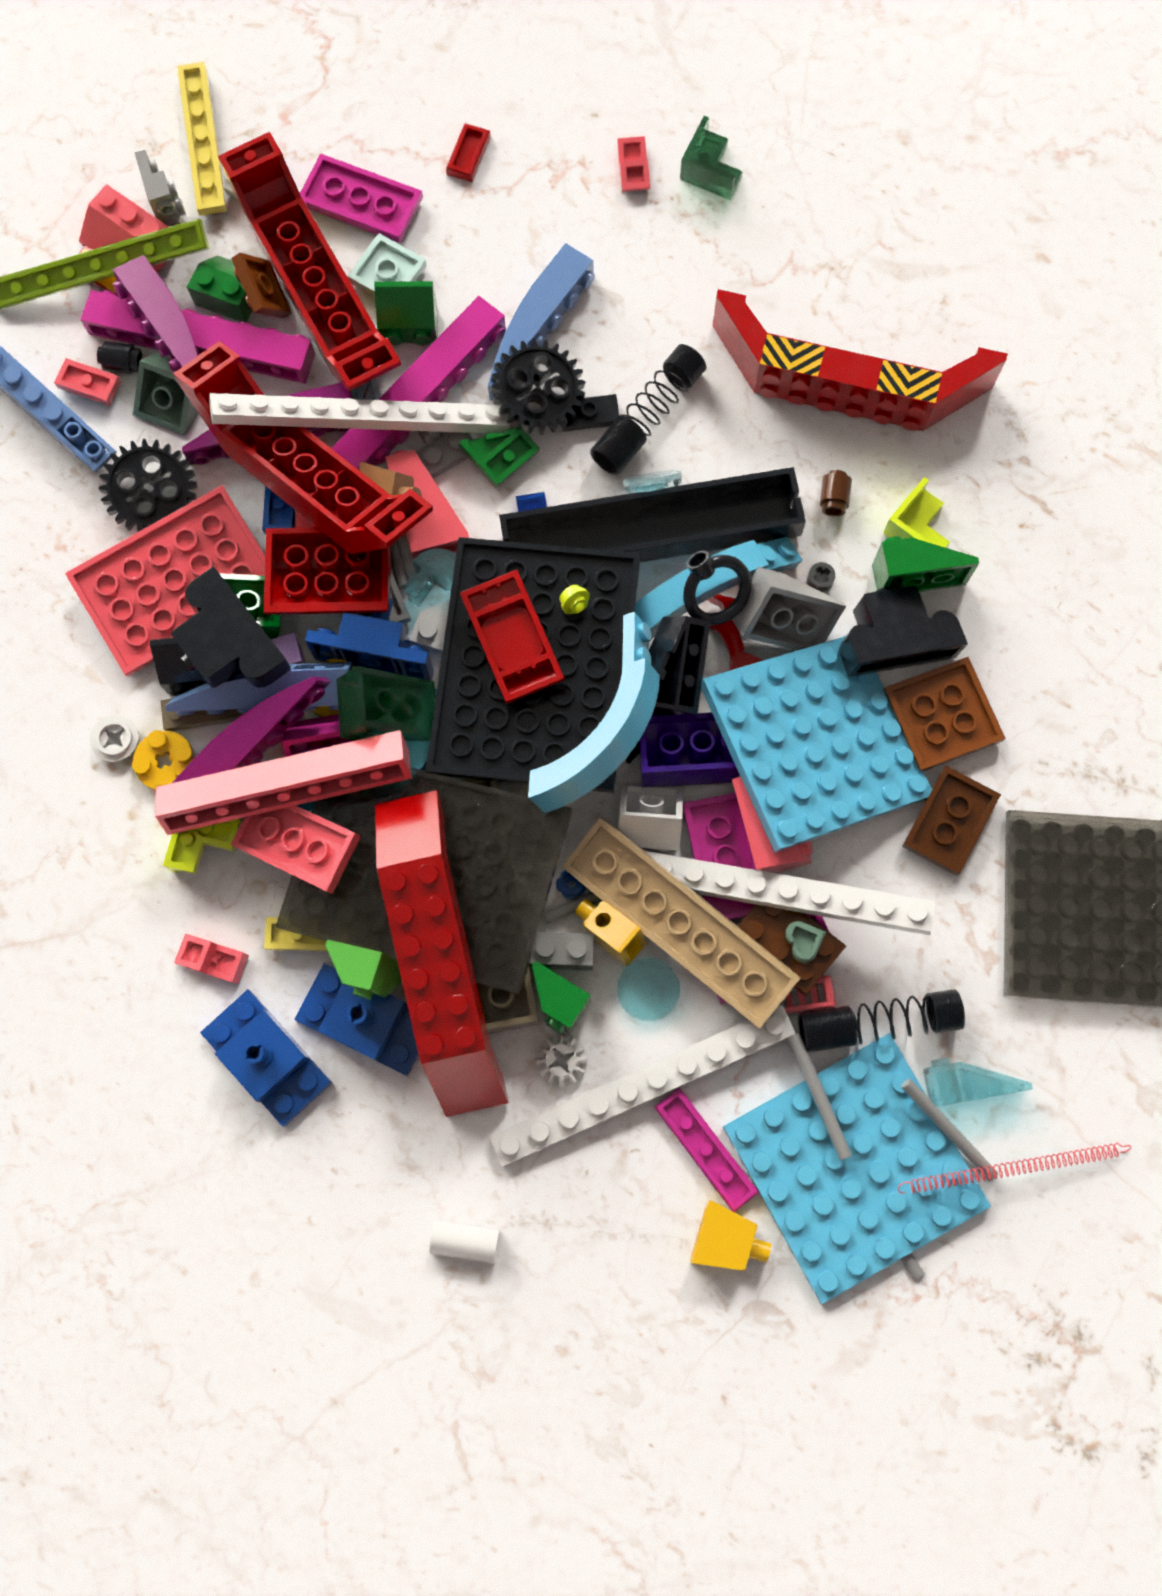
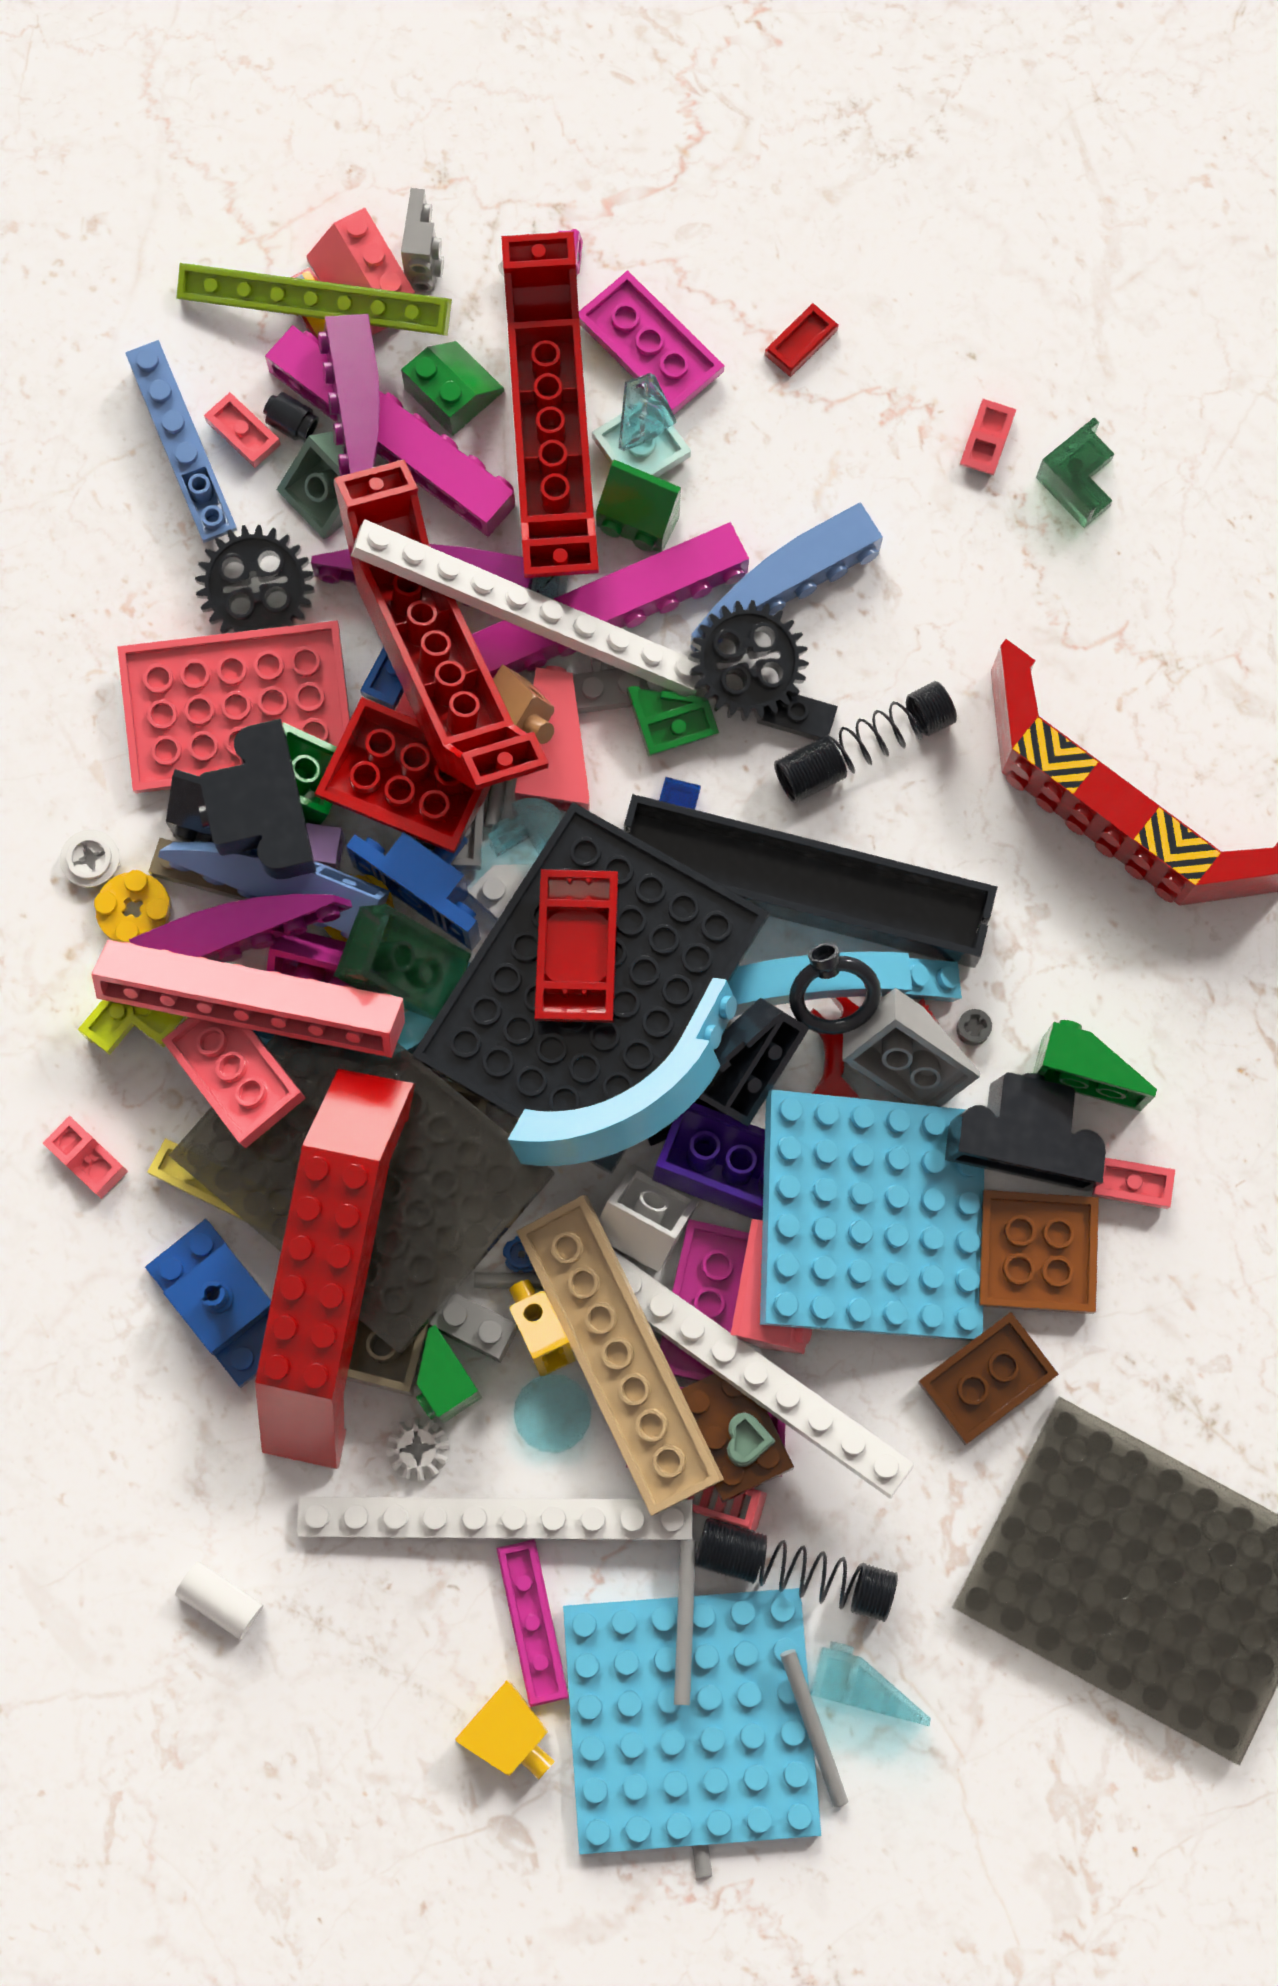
camera: 20 degrees right, 0 degrees up
(202, 139) = (500, 193): light yellow plate -> none
(260, 285) = (486, 404): dark orange plate -> none
(265, 1058) = (94, 1295): blue brick -> none
(364, 969) = (241, 1248): bright green slope -> none
(378, 245) = (643, 412): none -> clear light blue slope
(574, 599) = (666, 934): neon yellow plate -> none
(652, 481) = (828, 829): clear light blue tile -> none
(835, 493) = (1037, 936): reddish brown brick -> none
(914, 515) = (1112, 1005): neon yellow panel -> none
(990, 635) = (1136, 1183): none -> coral plate
(1017, 1167) = (871, 1803): coral piece -> none

